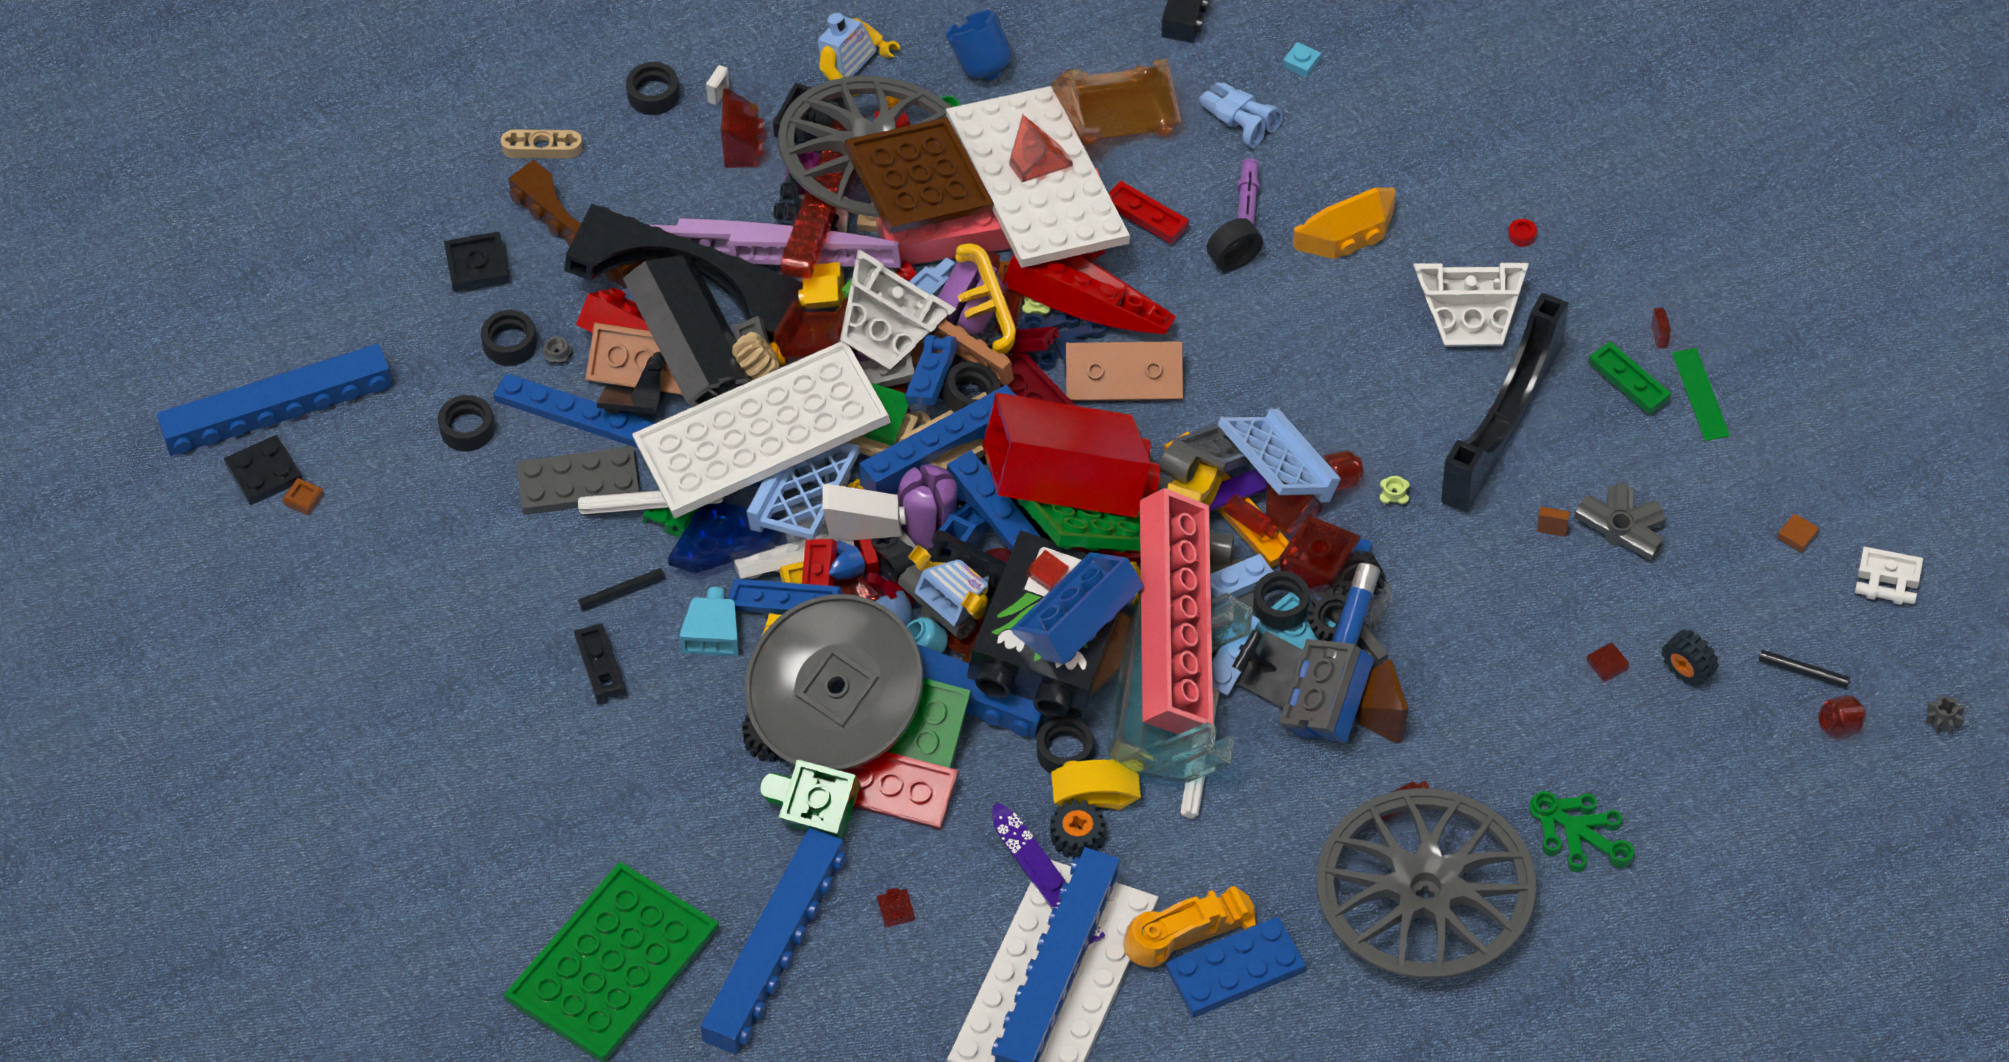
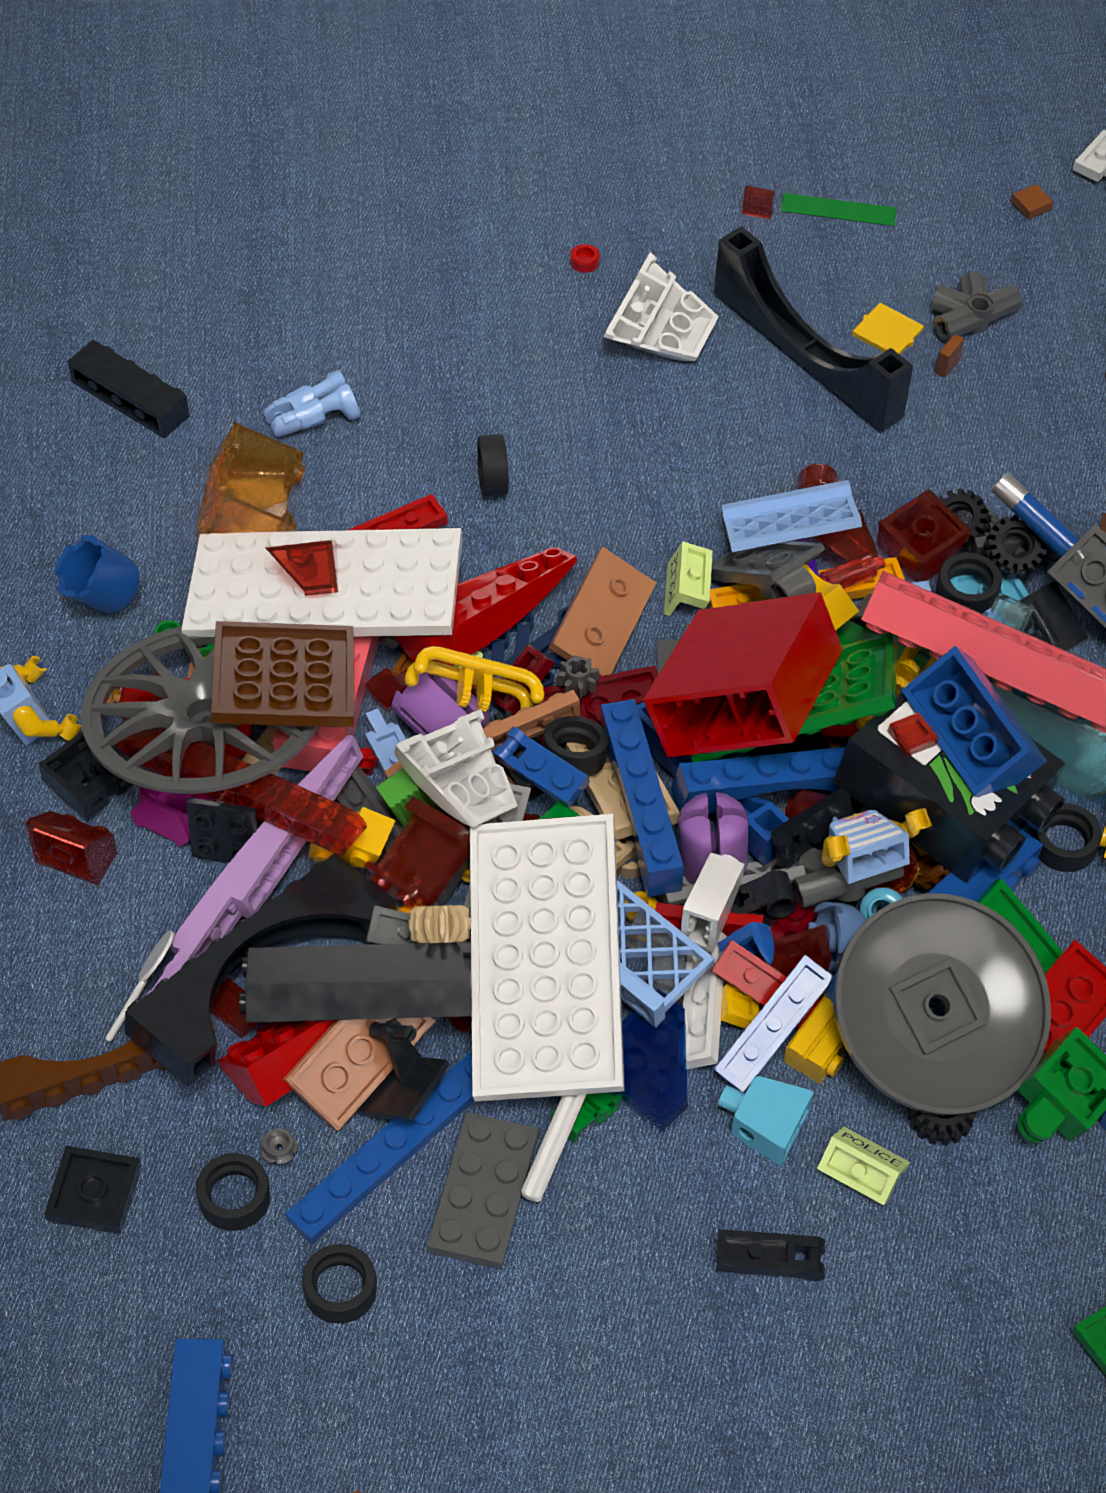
camera: 70 degrees left, 0 degrees up
(621, 589) = (666, 1197): black bar -> none
(666, 218) = (148, 968): none -> white piece
(702, 697) = (862, 1165): none -> yellowish green panel
(1043, 371) = (578, 675): none -> dark grey gear
(1192, 414) = (688, 577): none -> yellowish green panel
(1249, 175) = (414, 435): medium lavender pin -> none
(1301, 59) = (270, 339): medium azure plate -> none
(1347, 224) = (514, 372): light orange wedge -> none
(1397, 484) = (853, 459): yellowish green plate -> none
(1567, 473) = (887, 329): none -> yellow piece
(1629, 378) = (806, 244): green plate -> none

